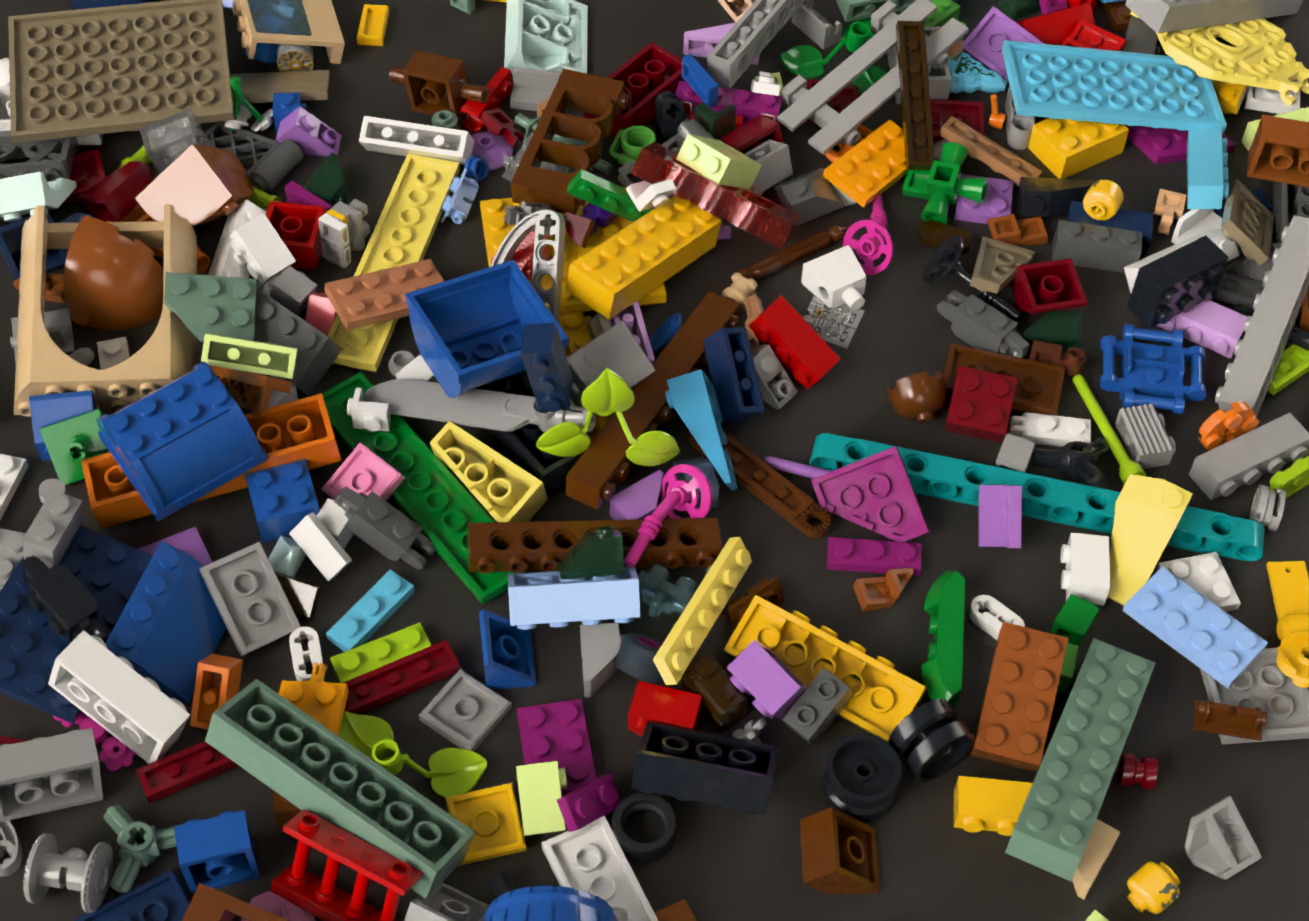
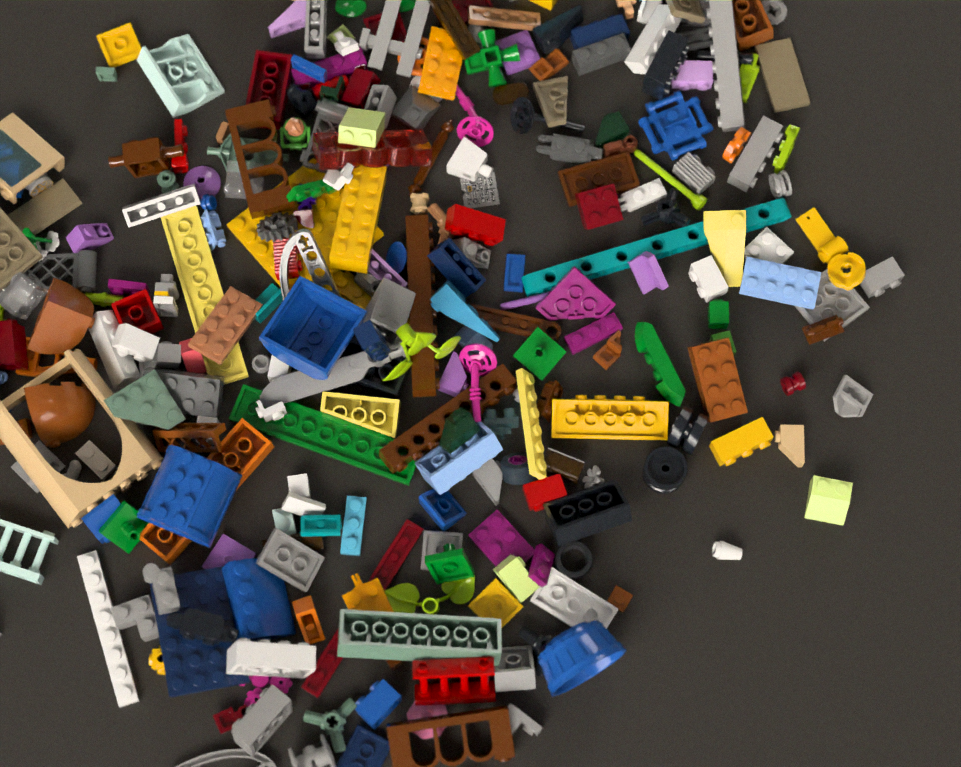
camera: 30 degrees left, 20 degrees up
(249, 355) = (188, 421): yellowish green brick -> none
(281, 498) = (261, 490): blue brick -> none
(284, 105) = (64, 225): blue brick -> none
(299, 656) = (341, 568): white beam -> none
(325, 580) = (321, 525): none -> teal panel
(328, 182) = (129, 266): clear green slope -> none
(364, 473) = (296, 453): bright pink tile -> none
(373, 25) = (63, 126): yellow tile -> none
(379, 652) = (376, 547): lime plate -> none
(384, 527) = (330, 475): dark grey hinge -> none
(456, 725) = (449, 565): none -> green tile
(500, 124) = (201, 161): dark red plate -> none
(532, 87) = (204, 122): light grey panel -> none
(637, 130) = (294, 127): none -> nougat plate
(767, 679) = (590, 446): medium lavender brick -> none
(779, 538) = (539, 353): none -> green tile
(815, 422) = (514, 272): none -> blue tile
(818, 706) = (621, 444): dark grey brick -> none
(839, 854) = (676, 517): reddish brown slope -> none
(918, 396) = (562, 219): reddish brown cylinder -> none
(992, 620) = (676, 339): white beam -> none
(1015, 453) = (633, 228): light grey brick -> none
(1048, 287) = (592, 104): dark red slope -> none
(1080, 760) = (765, 395): sand green brick -> none
(1103, 197) = (591, 24): yellow head -> none
(1153, 887) = (832, 443): yellow head -> none

